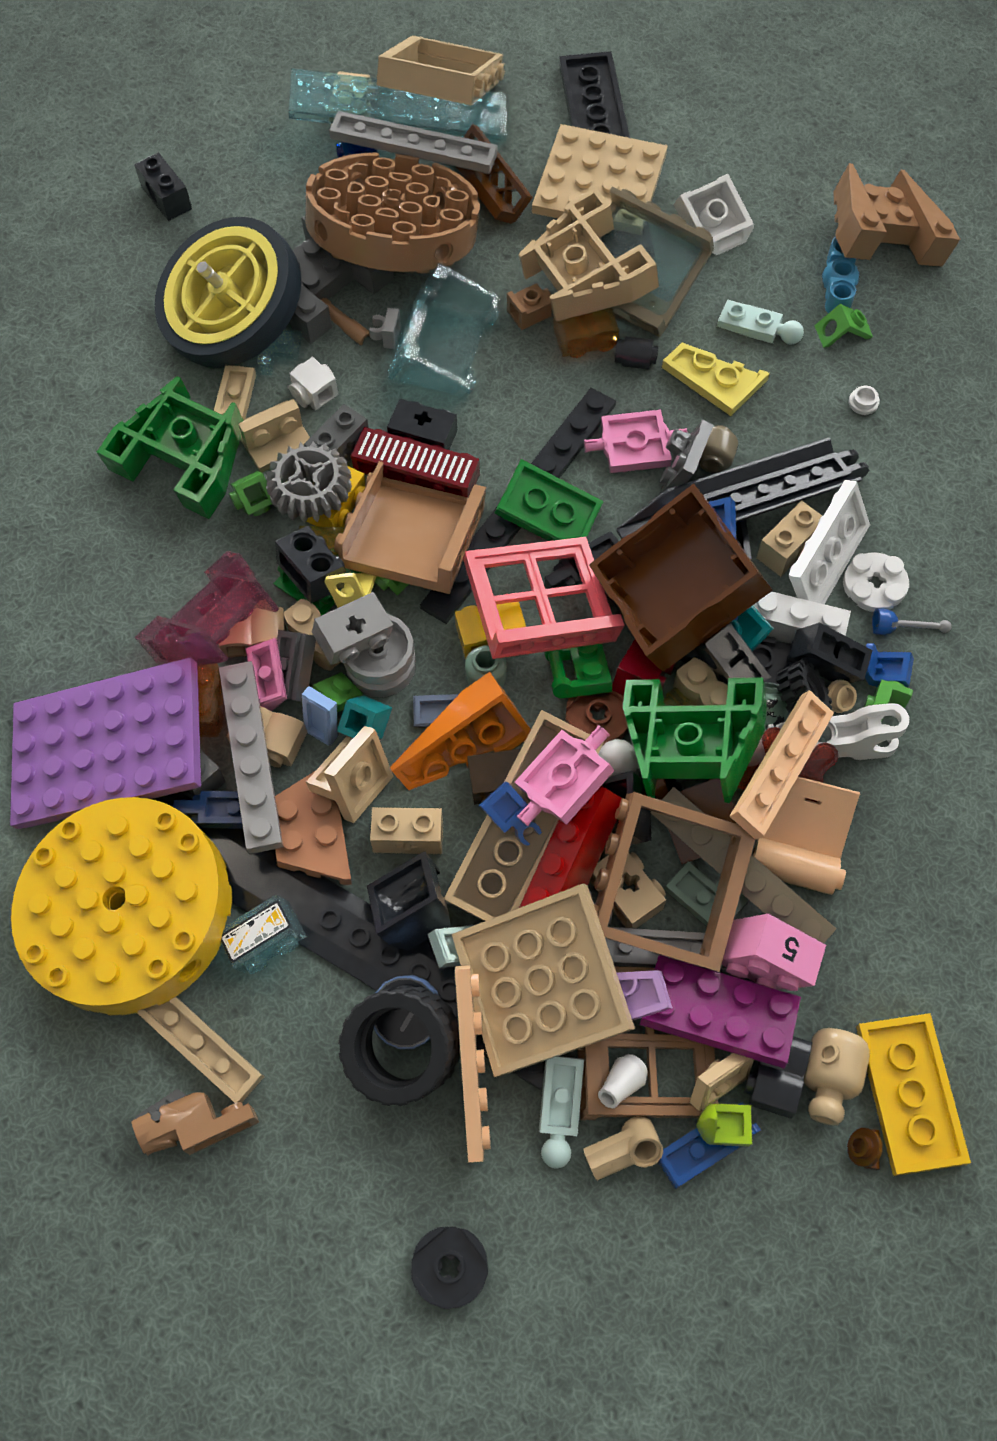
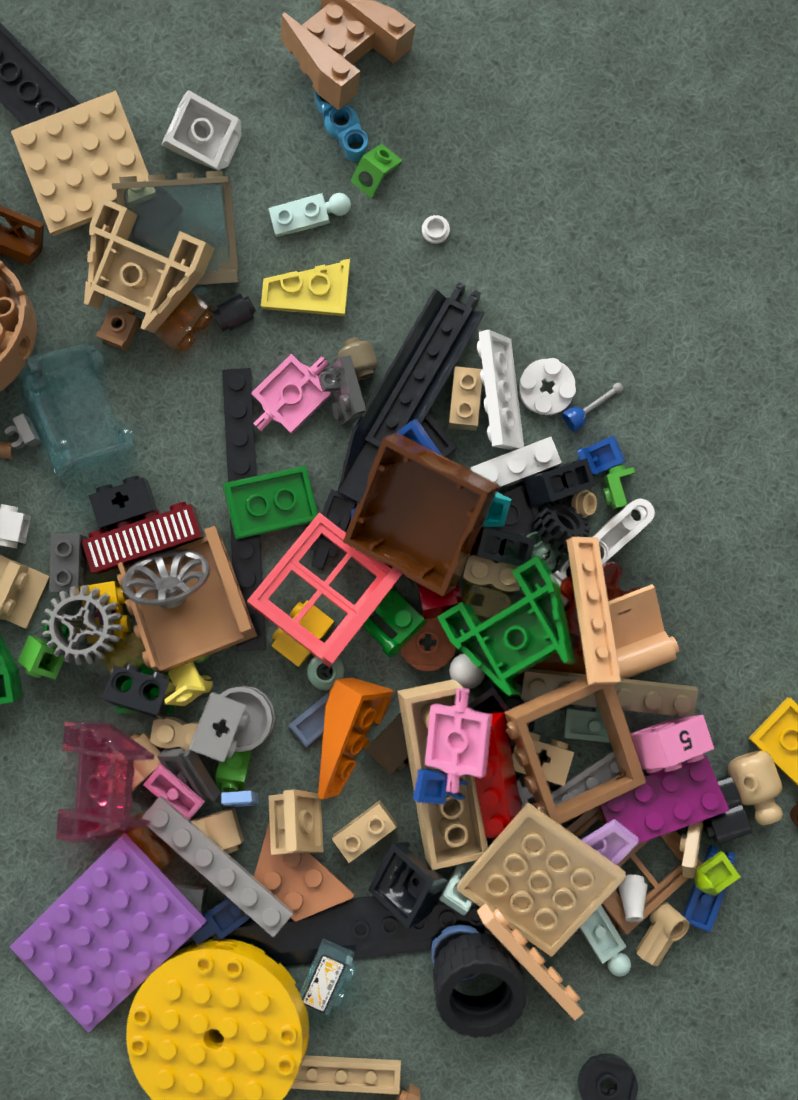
camera: 35 degrees left, 20 degrees up
(364, 712) = (271, 774): teal brick -> none
(407, 506) = (168, 587): none -> flat silver wheel

